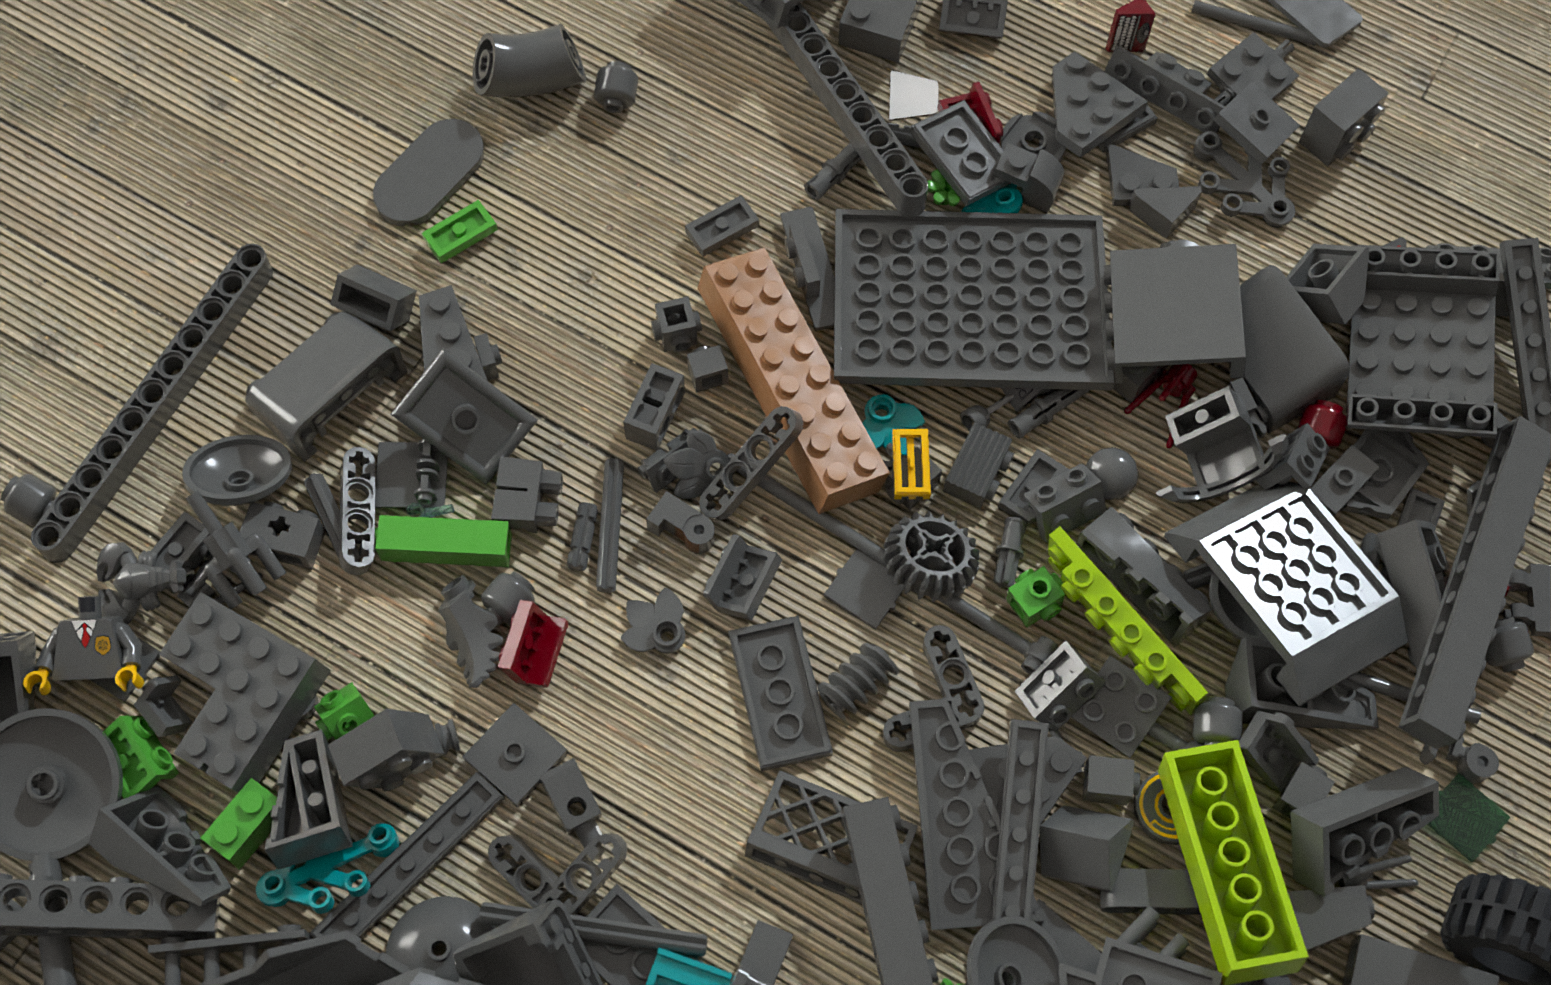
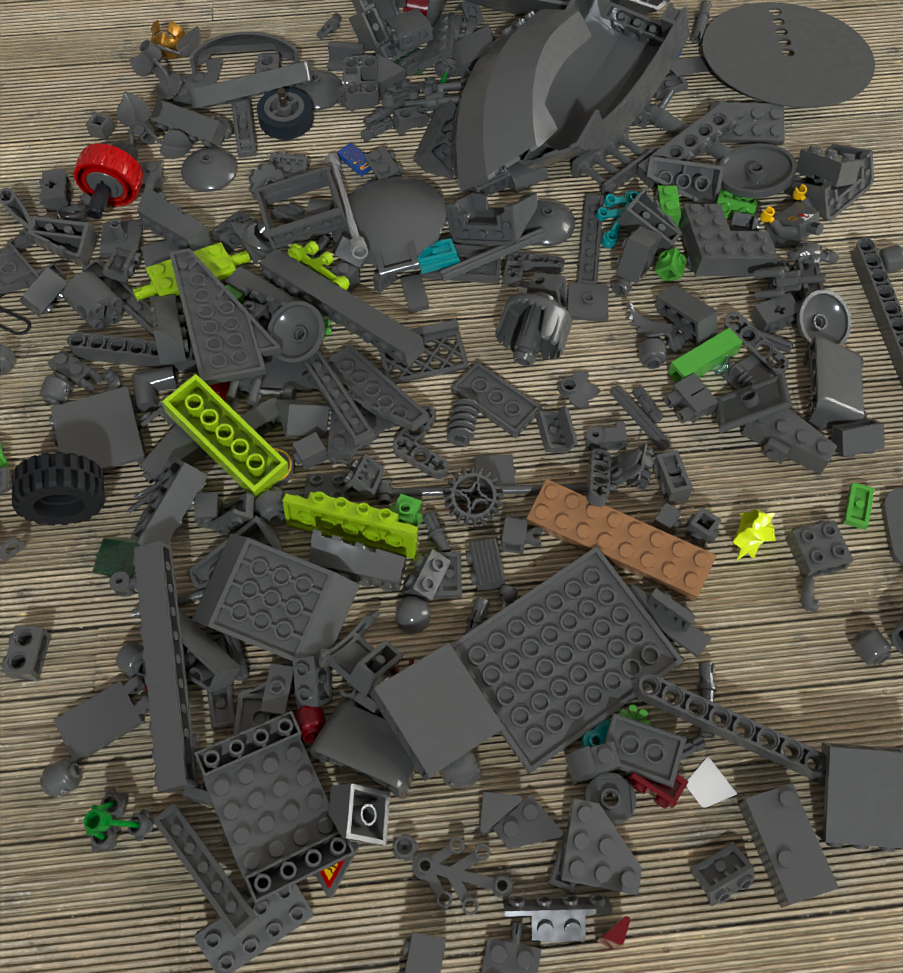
camera: 145 degrees right, 5 degrees down
(404, 617) = (688, 314): none -> dark grey wedge
(532, 645) = (622, 339): dark red bracket -> none
(561, 216) = (819, 549): none -> dark grey brick
(620, 281) = (753, 531): none -> neon yellow hair
(630, 179) = (807, 595): none -> dark grey arm
(638, 740) = (533, 325): none -> dark grey piece
(722, 225) = (734, 607): dark grey plate -> none
(898, 417) = (547, 558): teal plate -> none
(911, 491) = (519, 543): yellow tile -> none
(1082, 913) = (286, 392): none -> dark grey hinge
(1256, 122) = (479, 916): dark grey plate -> none
(1294, 235) = (399, 842): none -> dark grey plate

